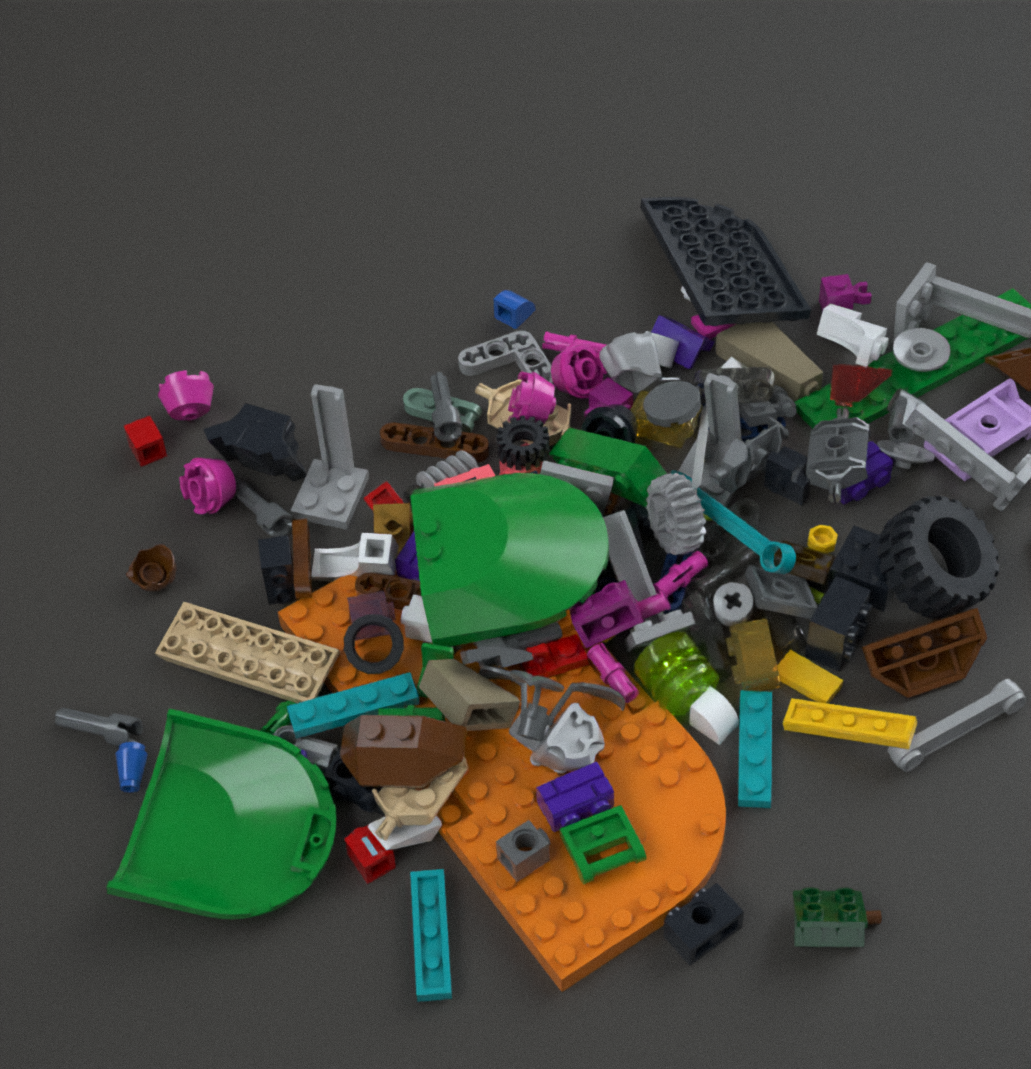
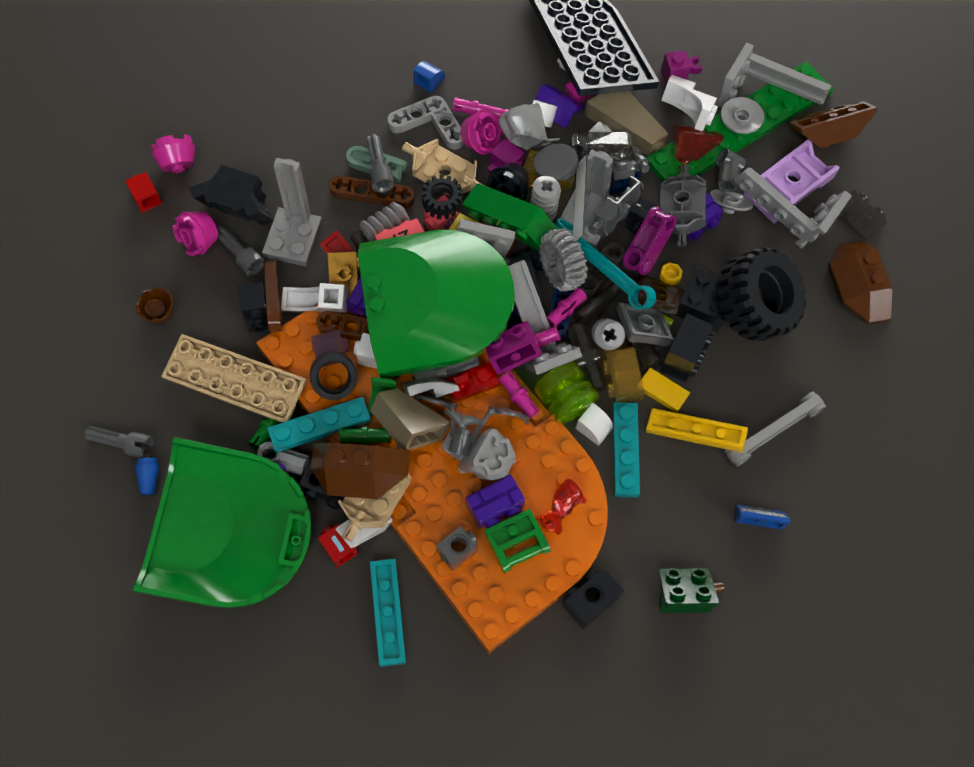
camera: 10 degrees left, 15 degrees up
(532, 398) = (447, 159): dark pink cone -> none
(660, 439) = (546, 195): none -> light grey piece
(665, 798) = (564, 501): none -> clear red animal
(791, 496) = (649, 241): none -> magenta piece
(927, 653) = (752, 370): reddish brown wedge -> none
(934, 834) = (761, 517): none -> blue slope

